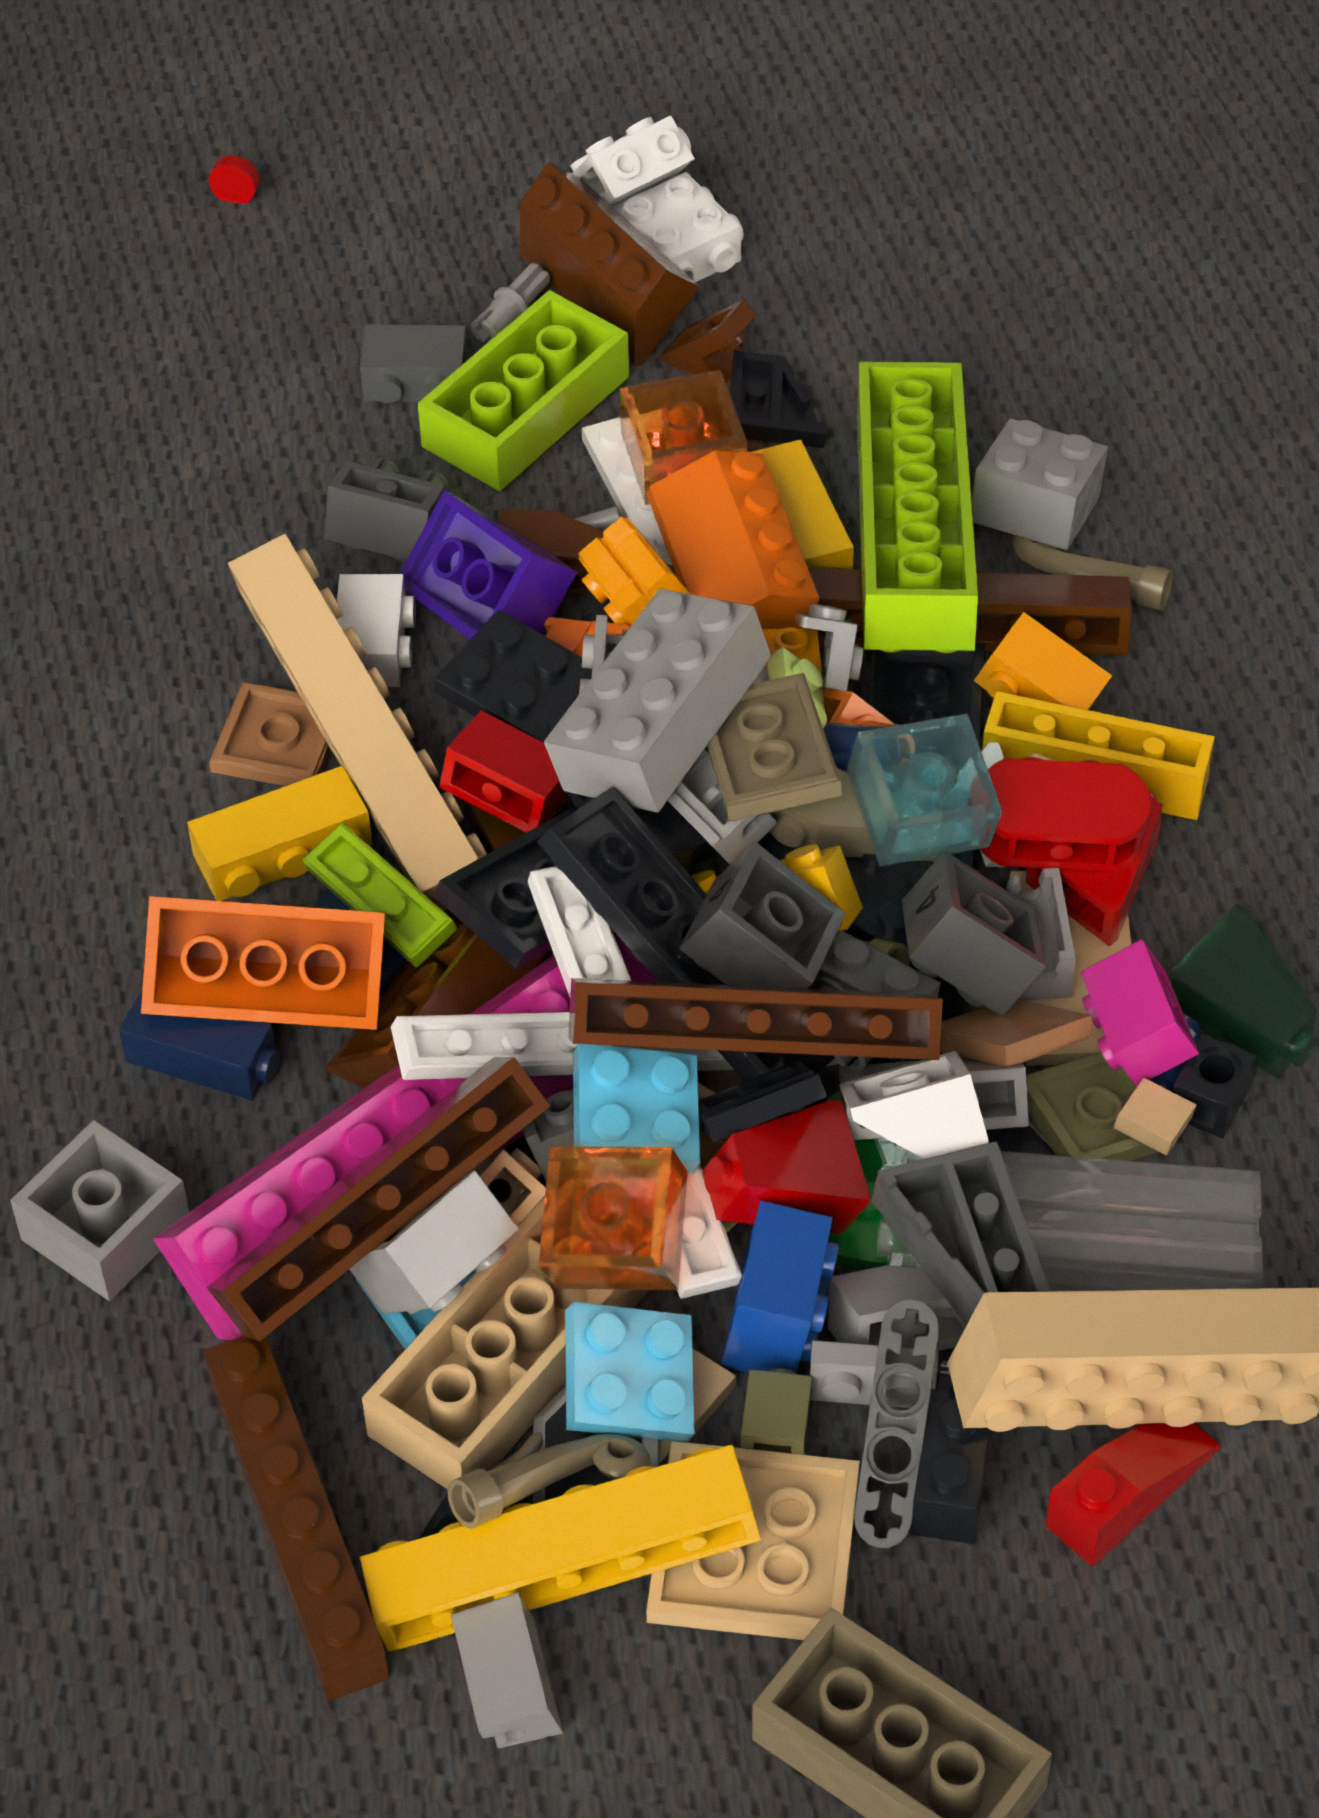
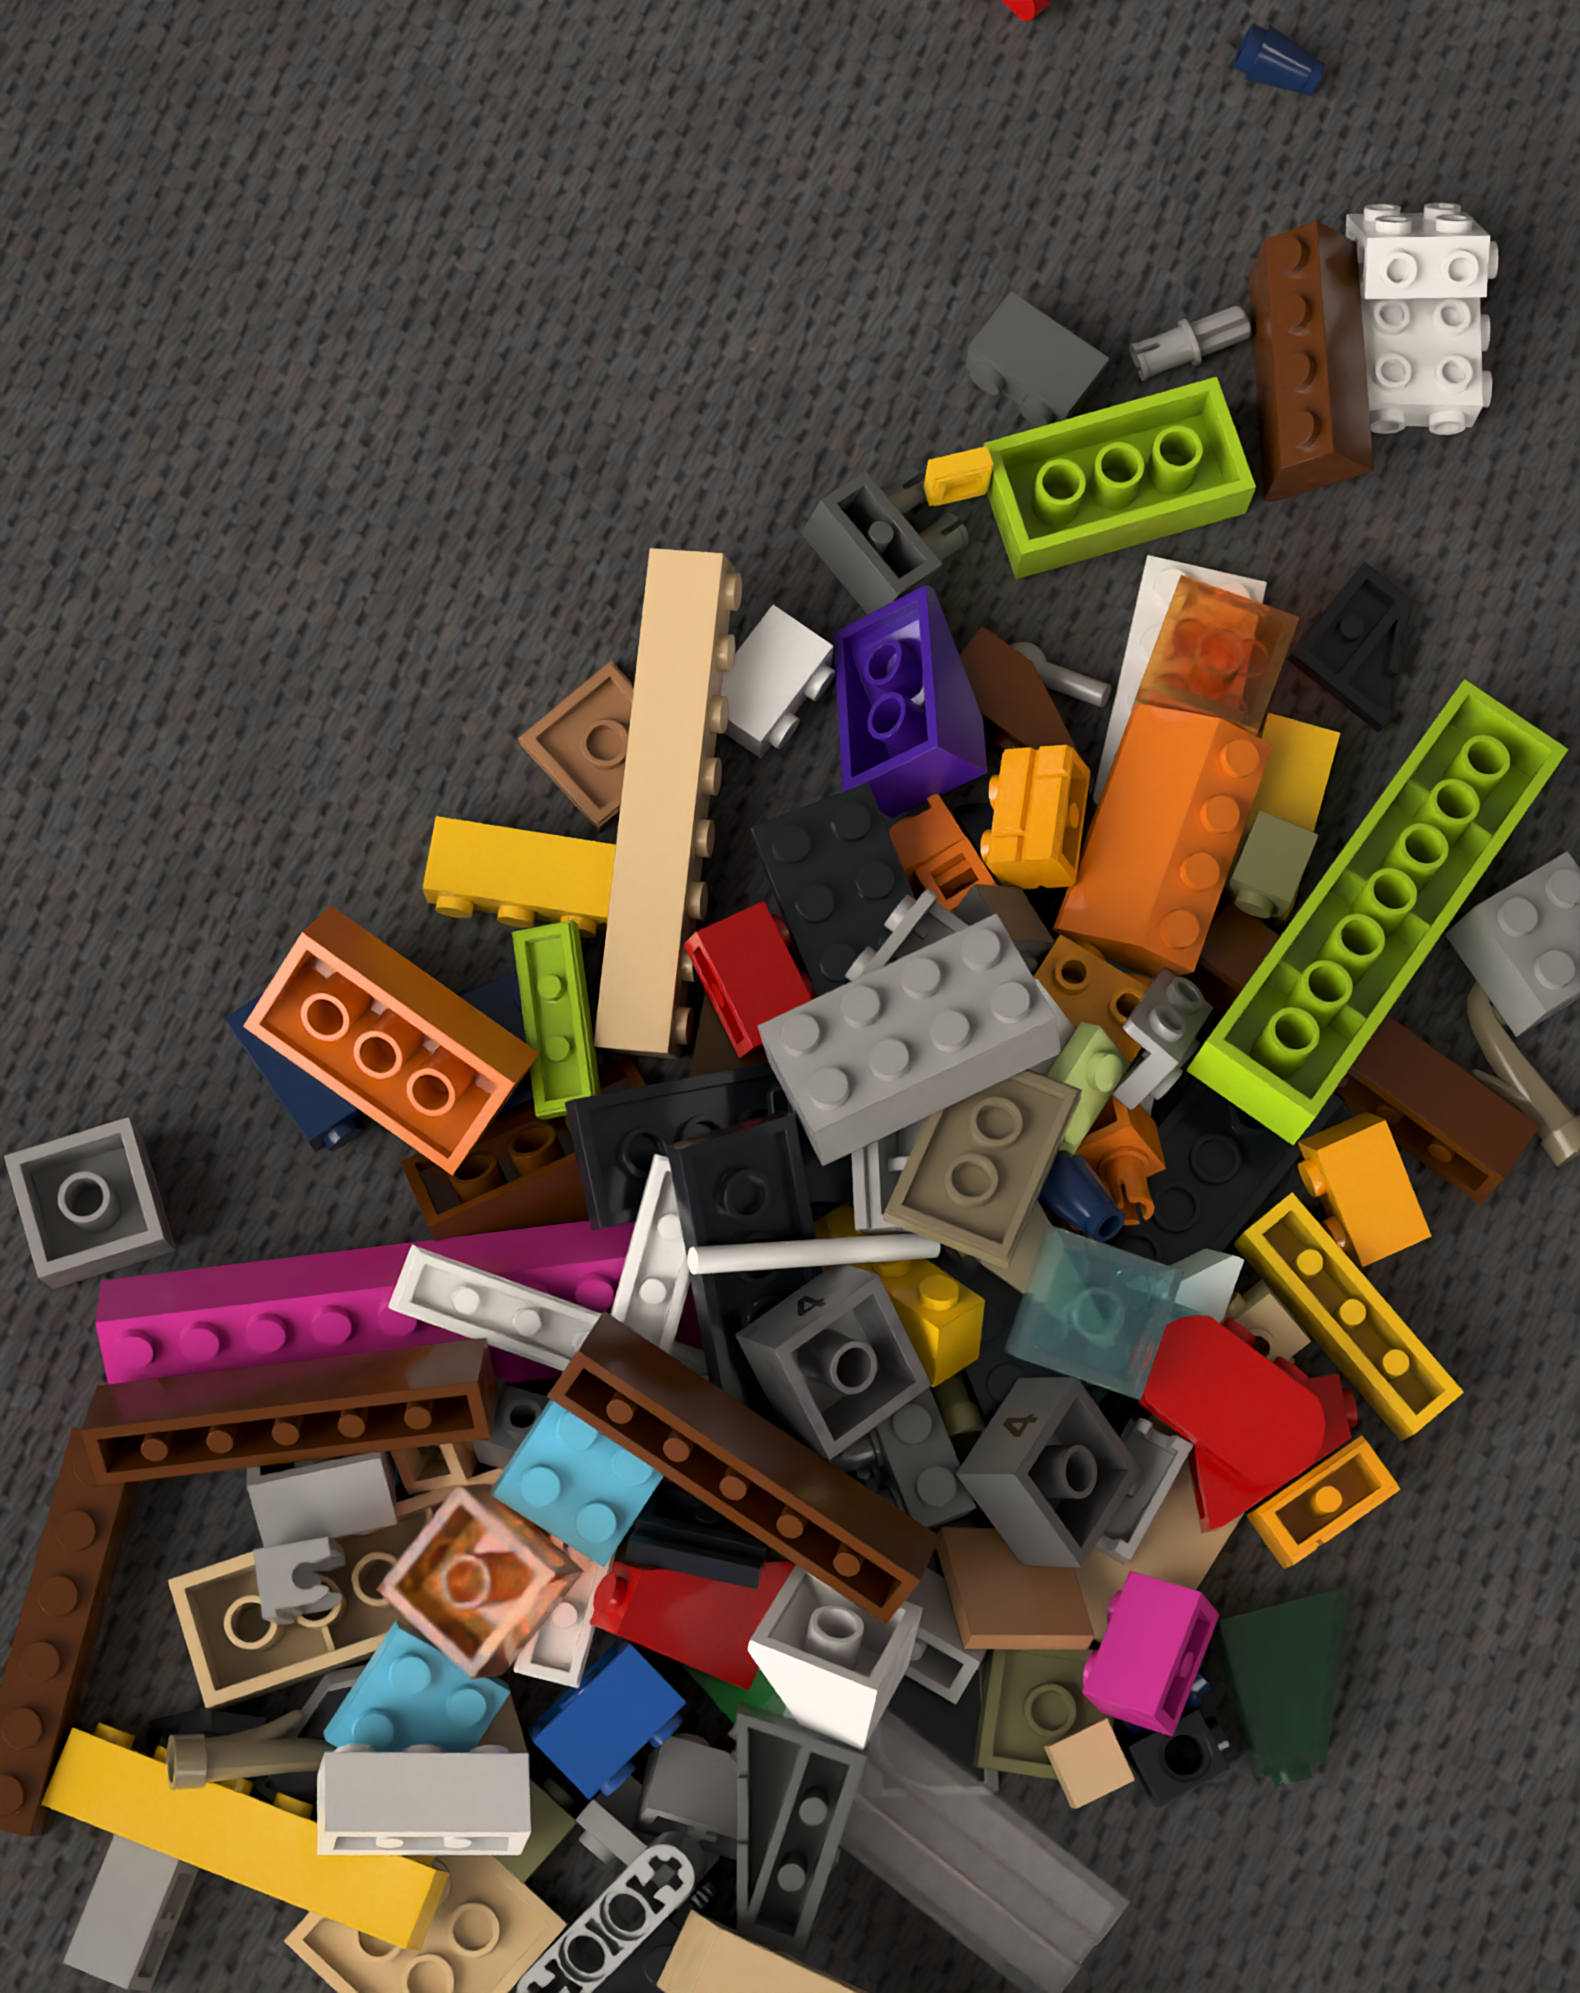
camera: 30 degrees right, 25 degrees up
(414, 434) = (958, 476): none -> yellow tile
(442, 135) = (1277, 61): none -> dark blue cone
(462, 1299) = (288, 1573): none -> light grey hinge
(685, 873) = (810, 1253): none -> white bar
(686, 1403) = (423, 1801): none -> white brick
(710, 341) = (1349, 530): reddish brown slope -> none
(820, 519) = (1270, 866): none -> olive brick
(1176, 869) = (1323, 1502): none -> light orange brick

